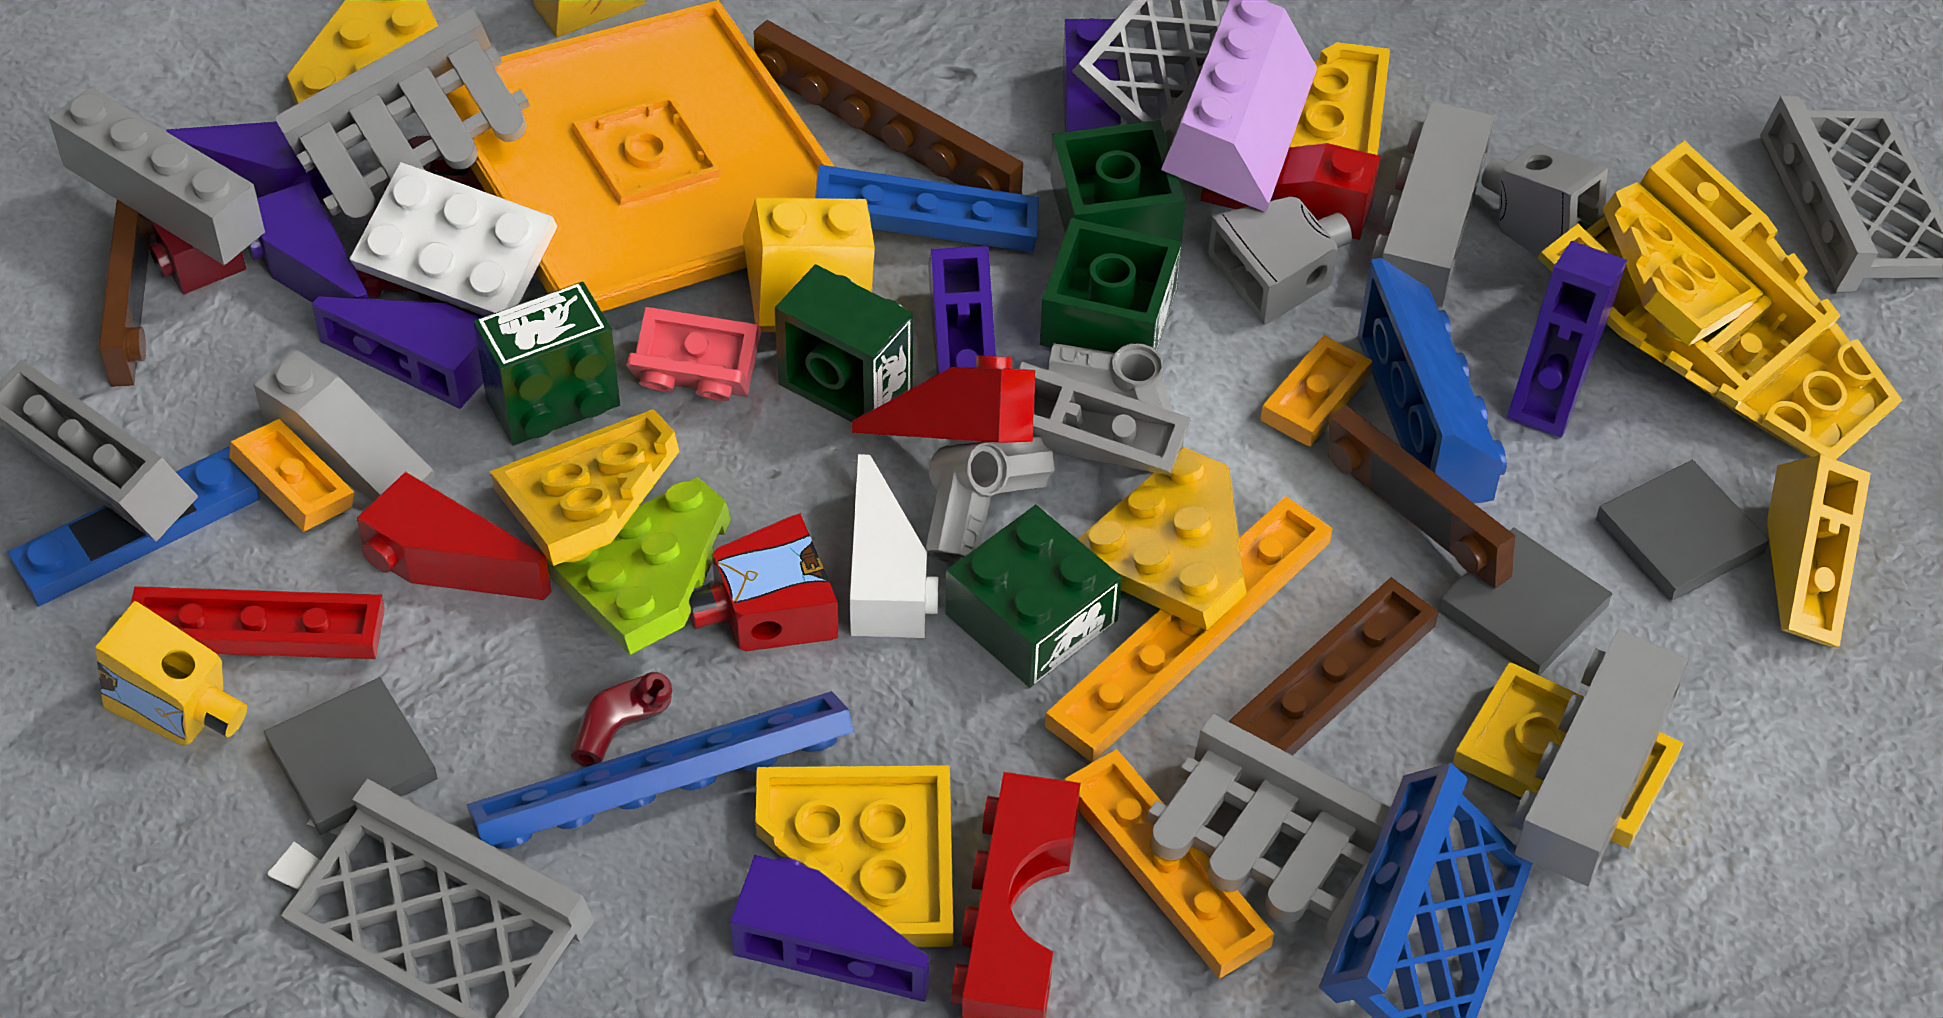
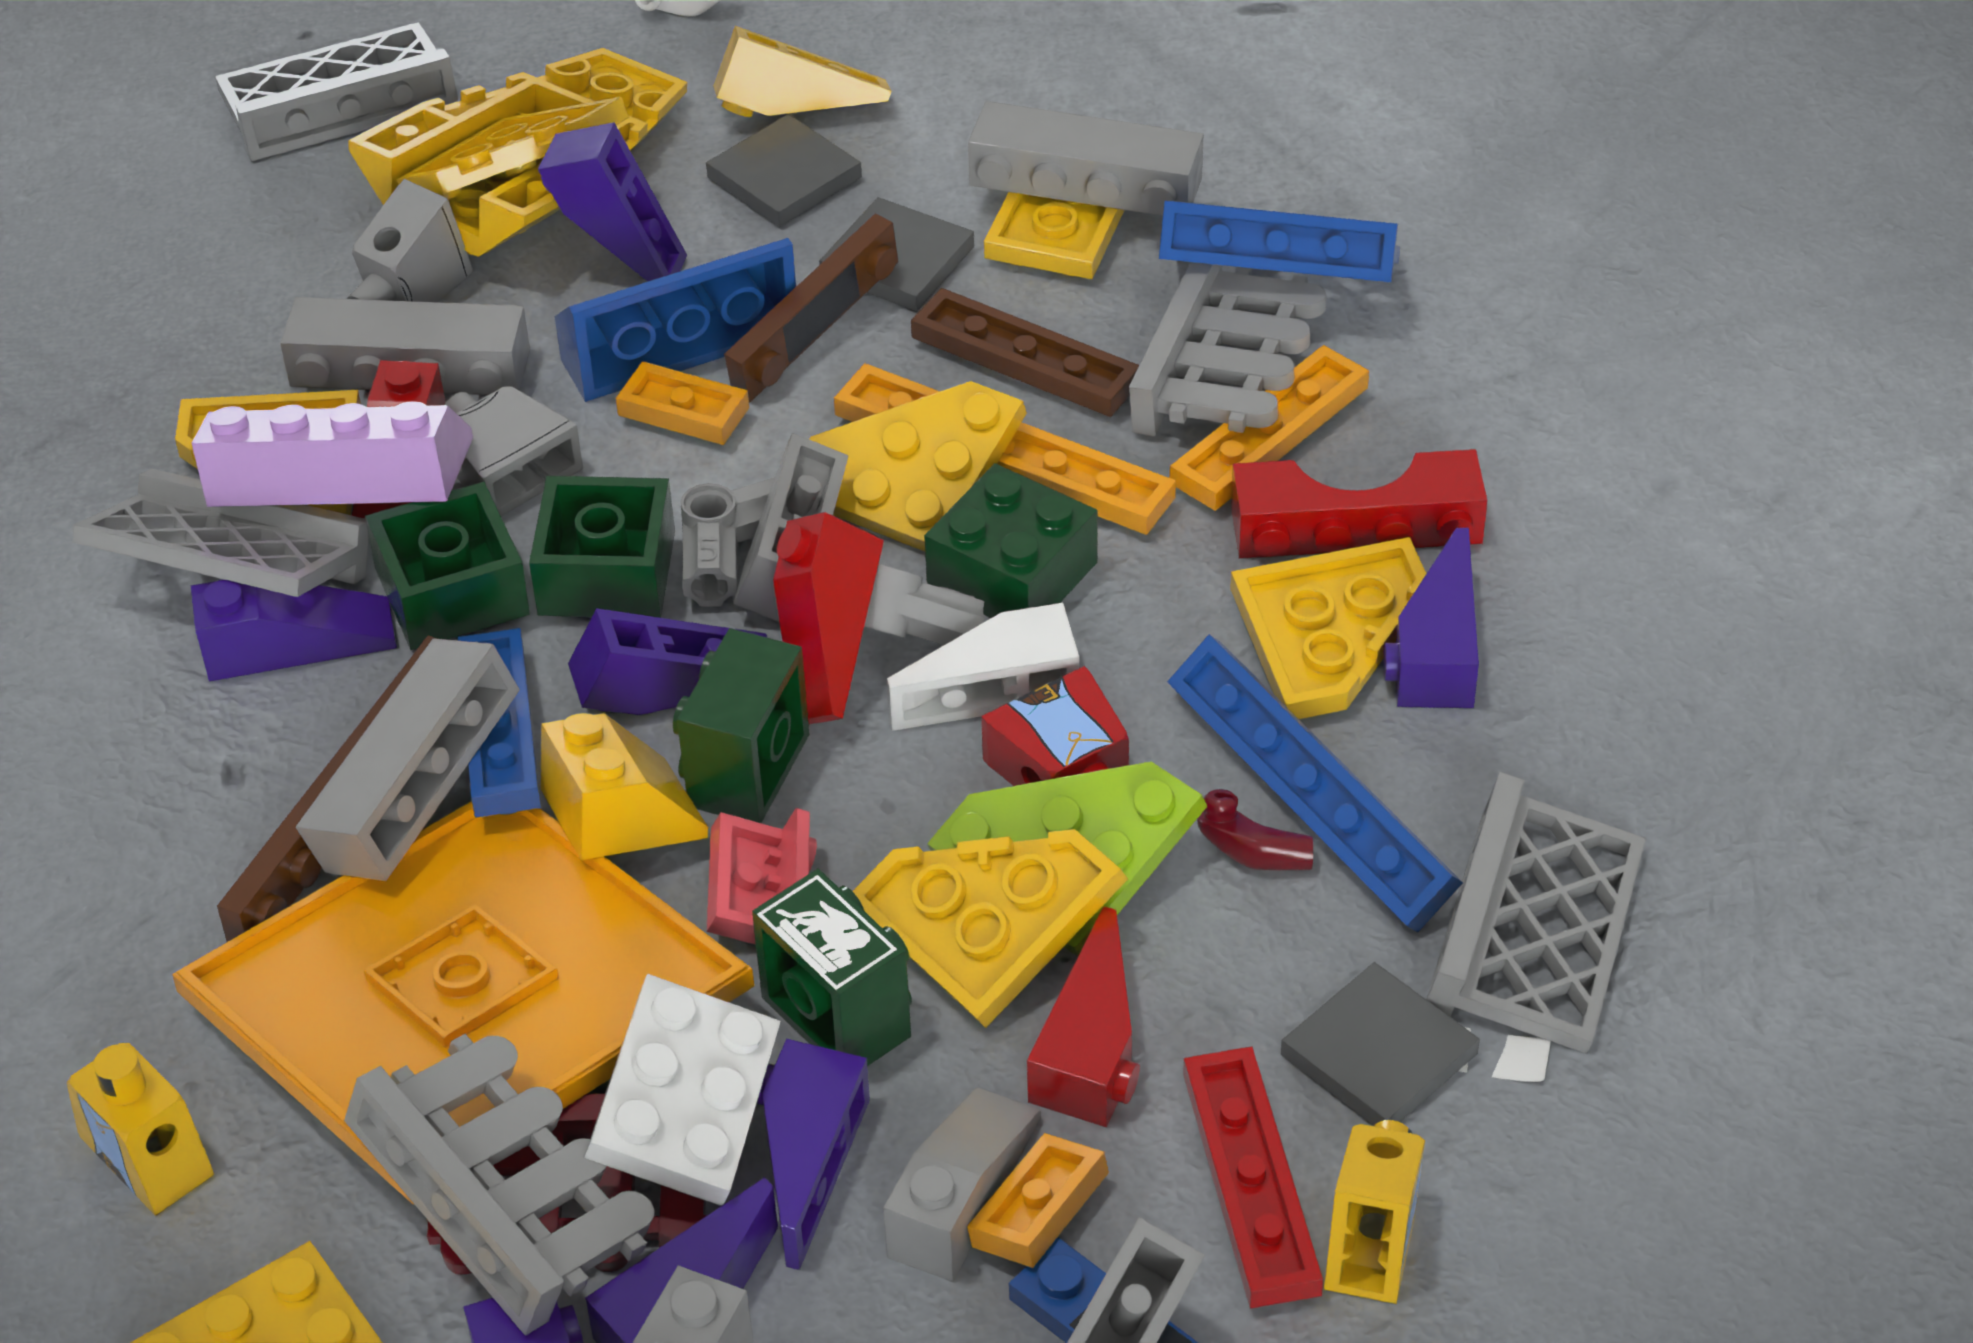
camera: 100 degrees left, 5 degrees down
(871, 128) = (408, 759): none -> light grey brick

